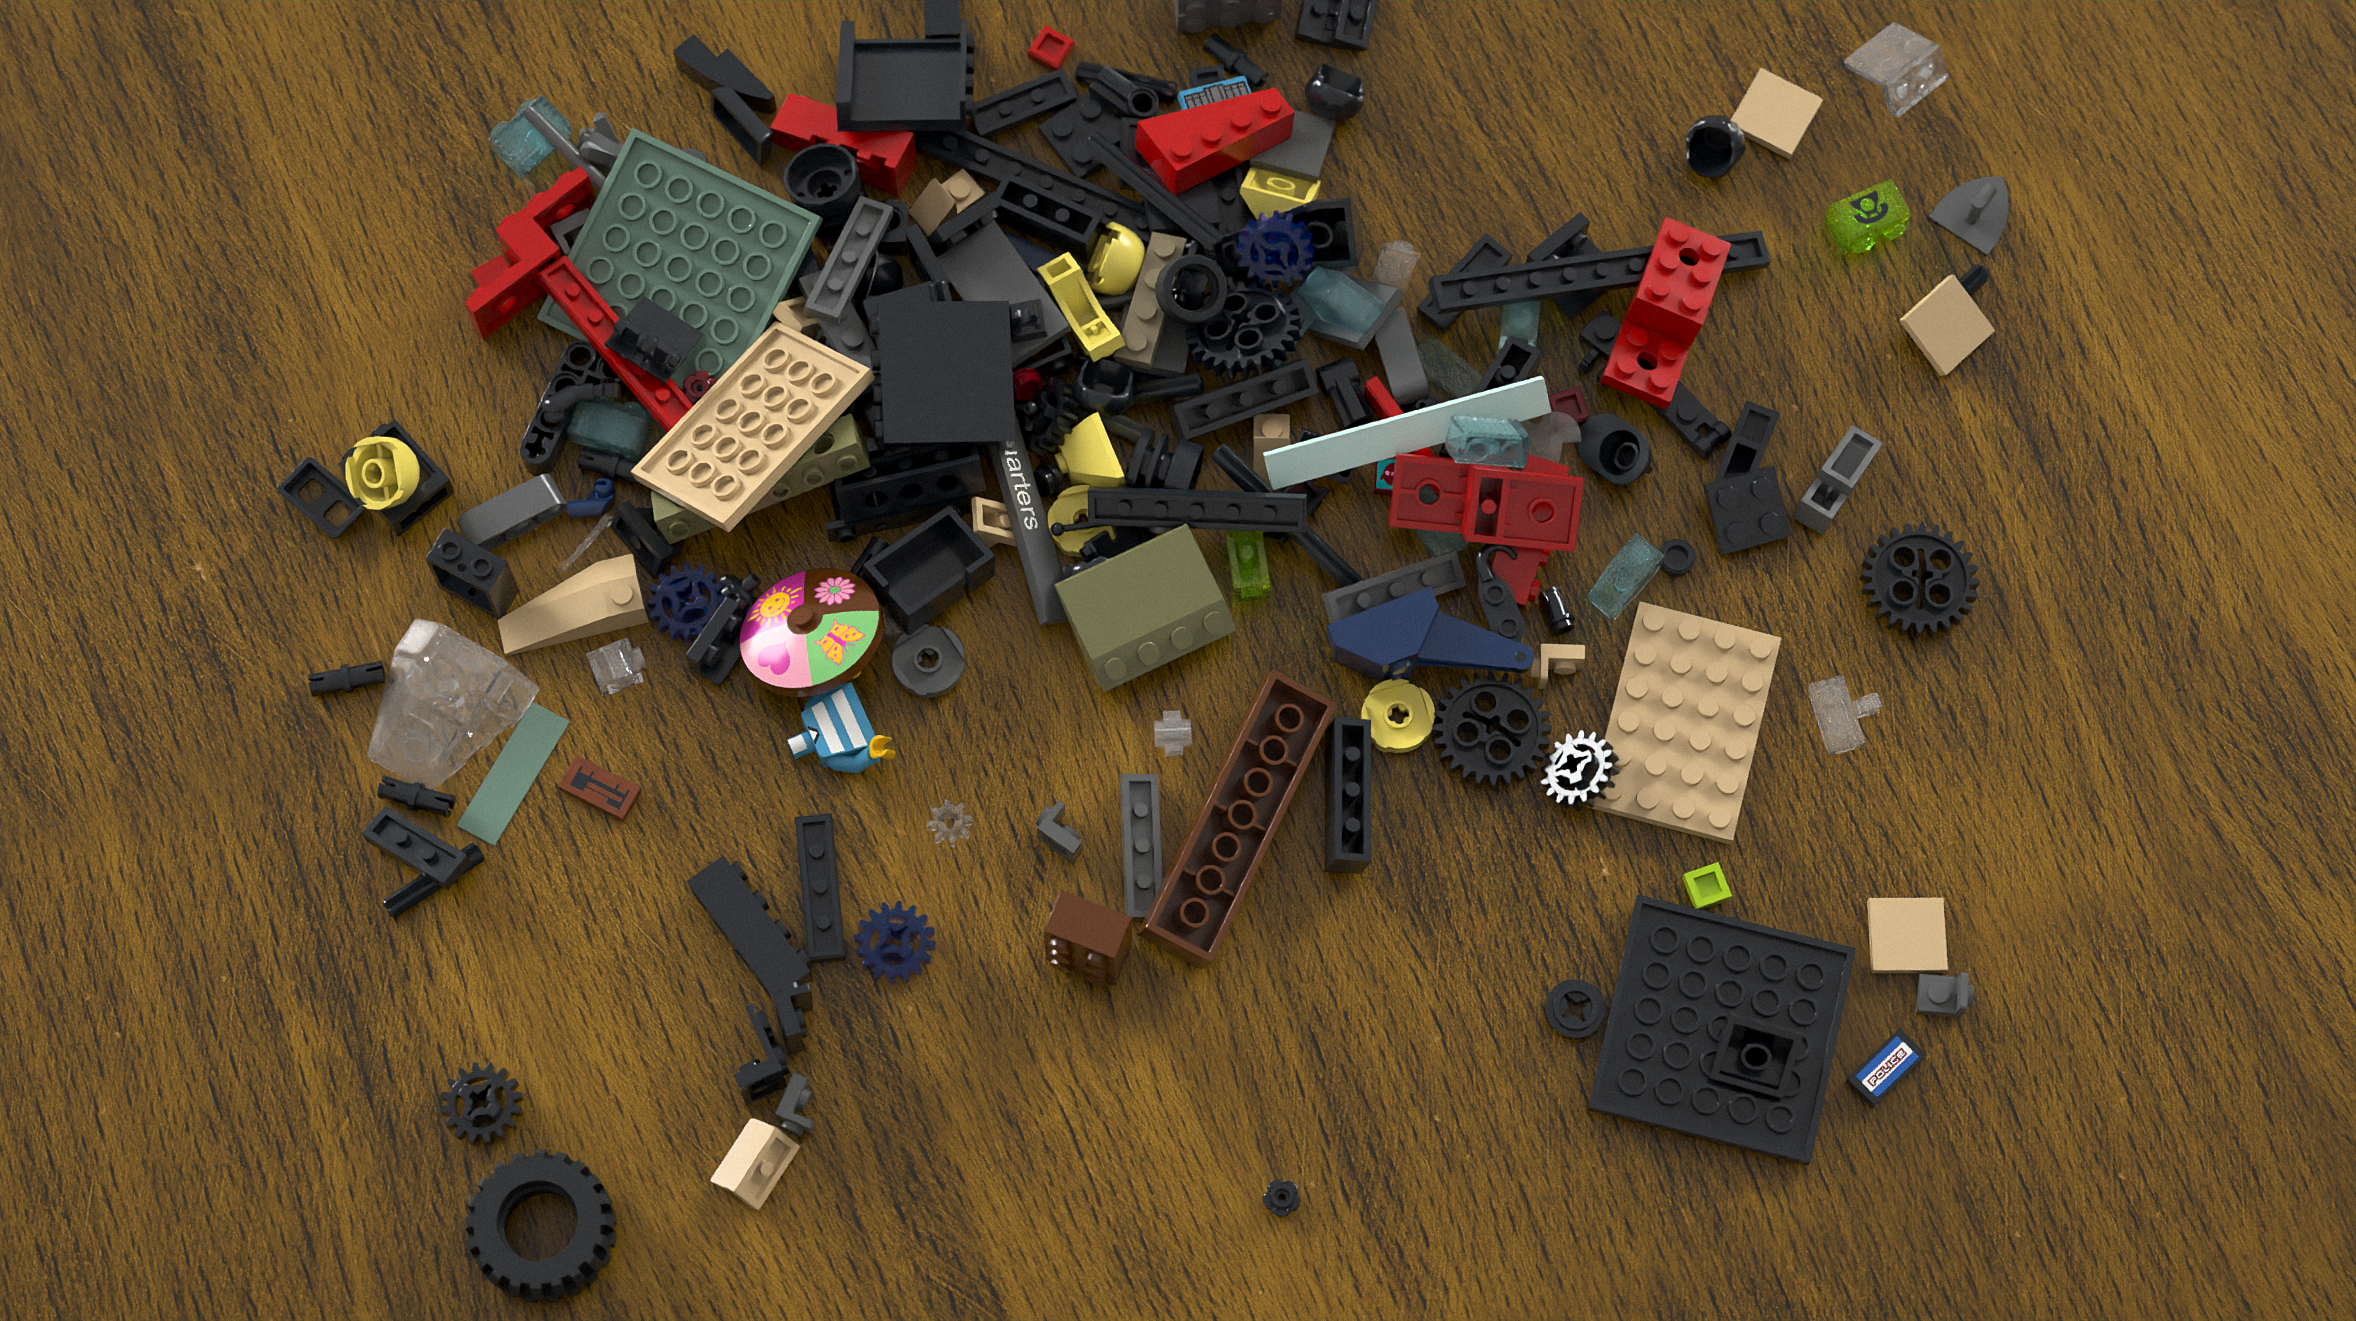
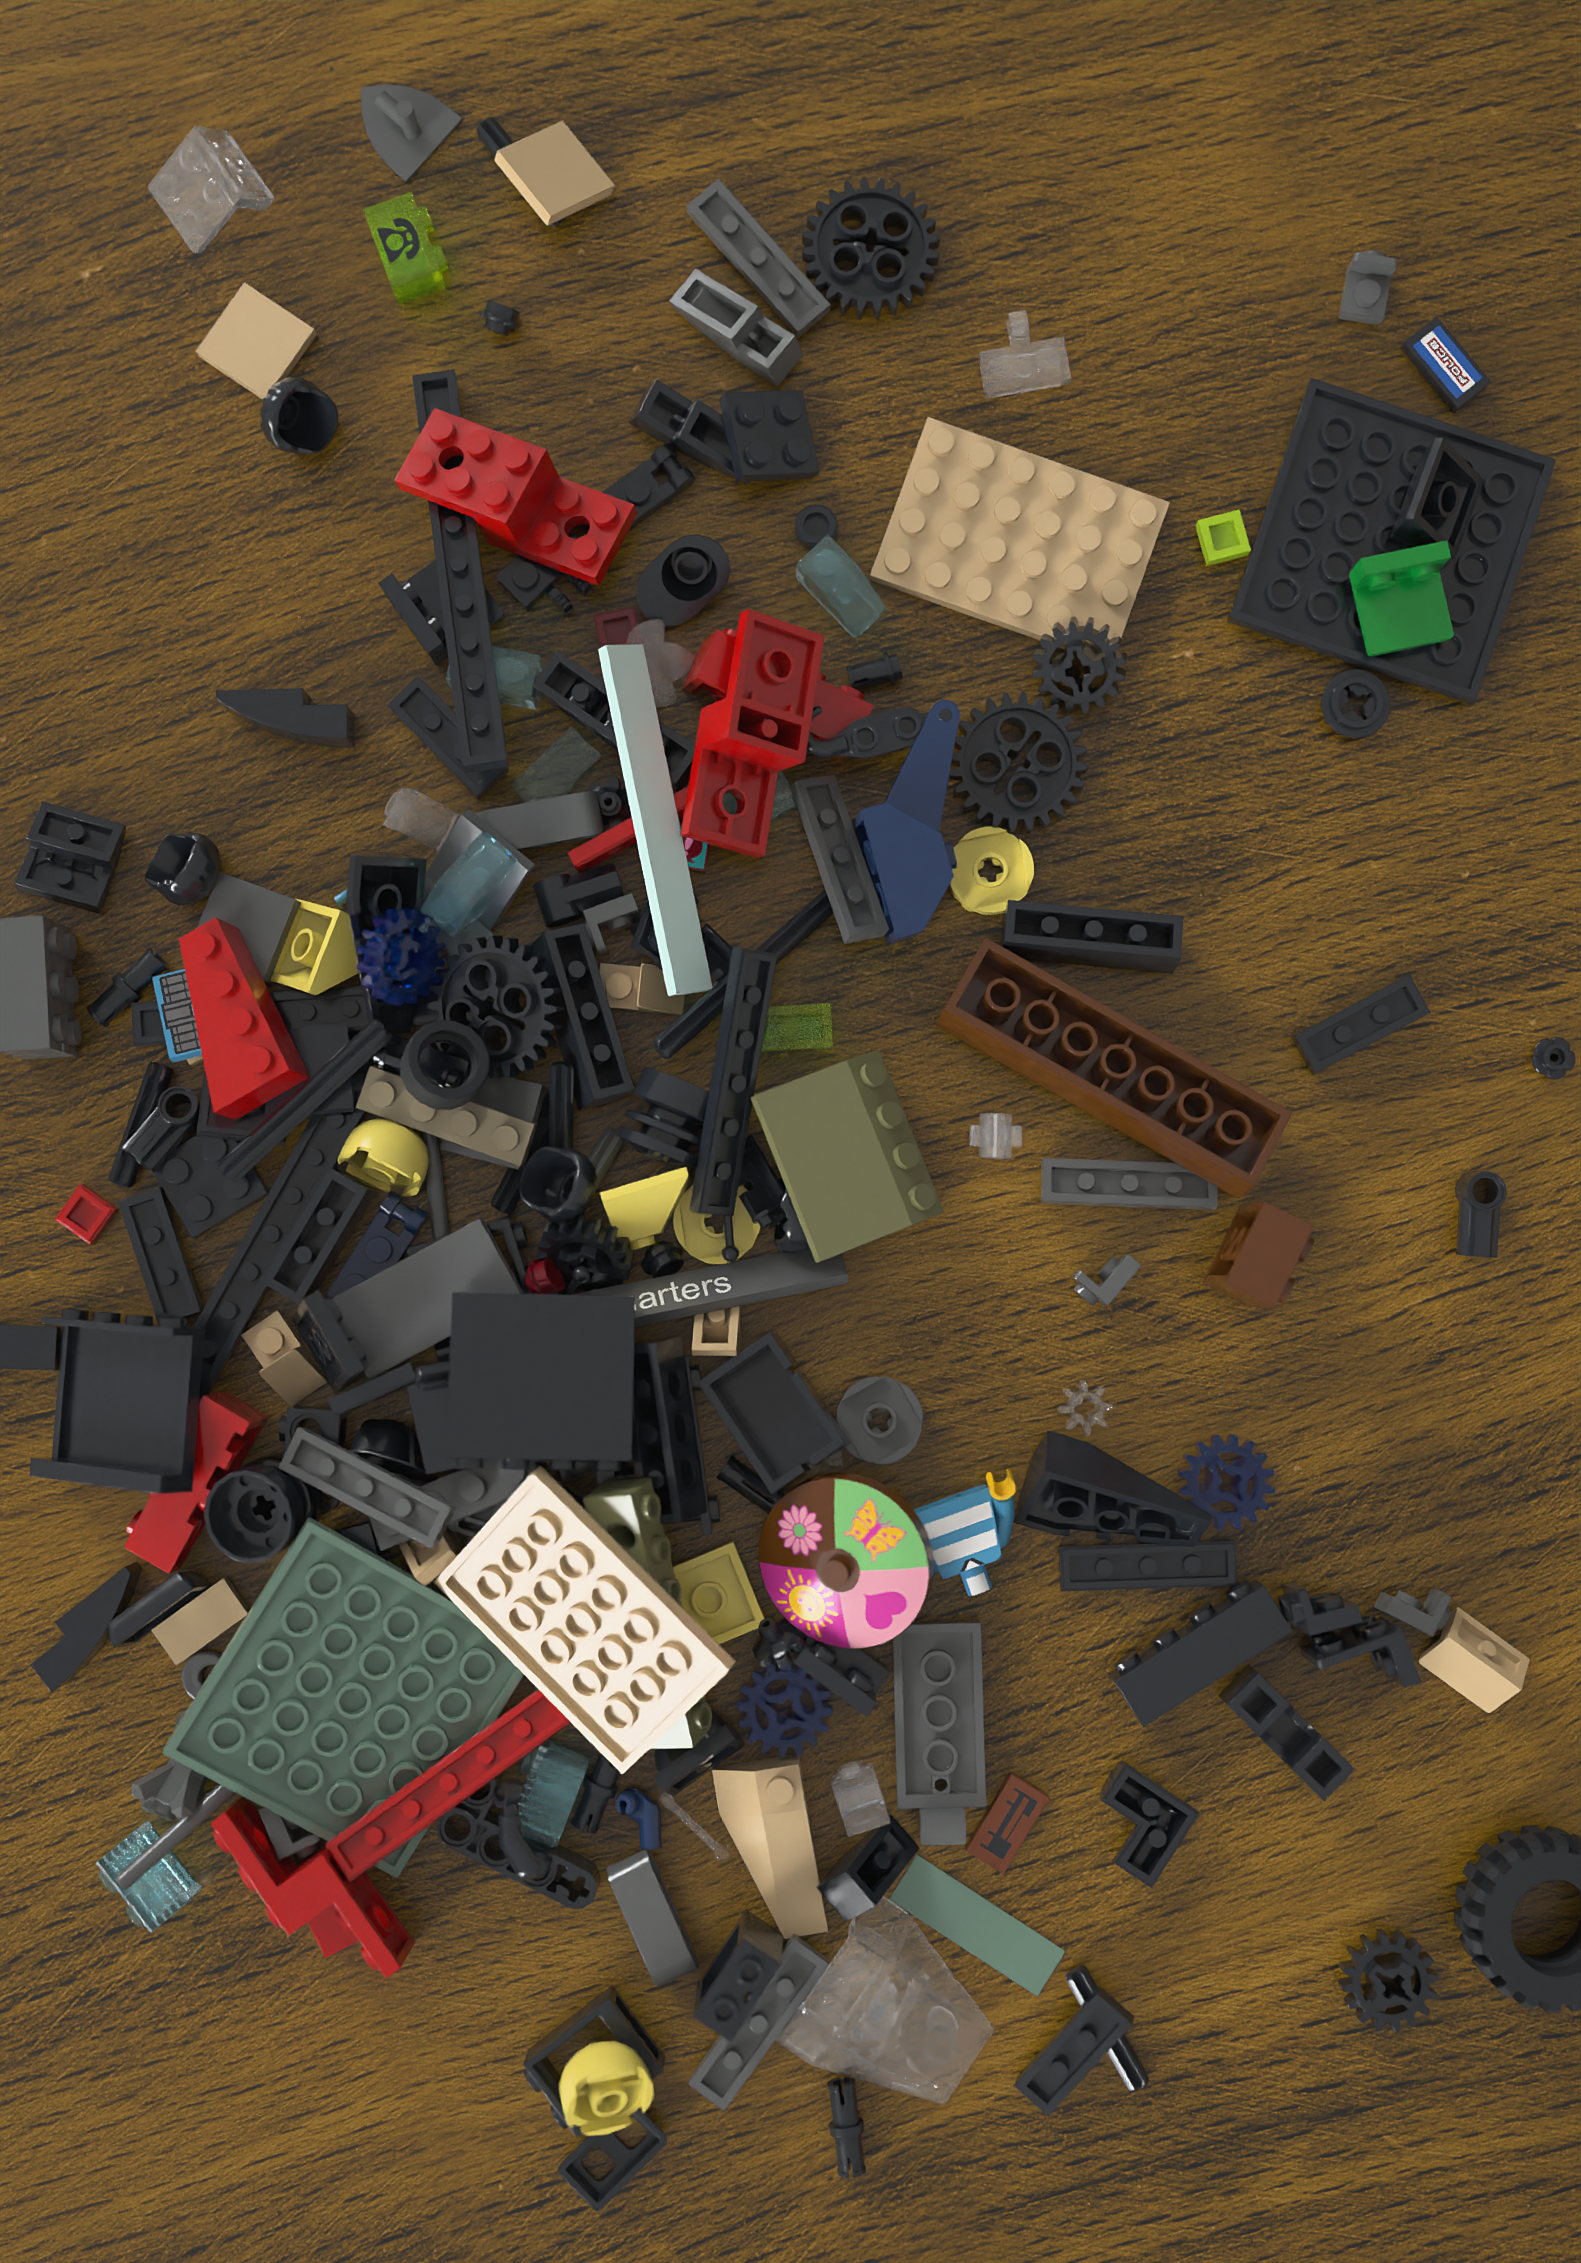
camera: 80 degrees left, 15 degrees up
(416, 796) = (1003, 2046): black pin -> none
(428, 599) = (731, 2063): none -> dark grey plate
(559, 677) = (868, 1870): none -> black slope
(608, 905) = (1159, 1819): none -> black brick
(653, 339) = (449, 1737): black hinge -> none
(678, 726) = (939, 1726): none -> dark grey hinge
(692, 381) = (506, 1690): dark red plate -> none
(704, 985) = (1286, 1732): none -> black arch
(731, 155) = (201, 1621): none -> tan tile
(774, 540) = (719, 1593): none -> light yellow plate
(880, 827) = (1089, 1490): none -> black wedge
(1027, 321) = (469, 1270): black tile -> none
(1080, 308) = (451, 1202): light yellow arch -> none
(1133, 1139) = (1479, 1220): none -> black piece
(1295, 1030) = (1360, 1024): none -> black plate
(1324, 406) = (613, 914): none -> dark grey bracket
(1469, 165) = (292, 715): none -> black slope
(1487, 441) = (679, 722): clear light blue brick -> none
(1558, 657) = (939, 671): tan bracket -> none
(1666, 1030) = (1402, 598): none -> green bracket
(1820, 295) = (499, 318): none -> black plate
(1898, 492) = (758, 258): none -> dark grey plate
(1907, 935) = (1292, 321): tan tile -> none

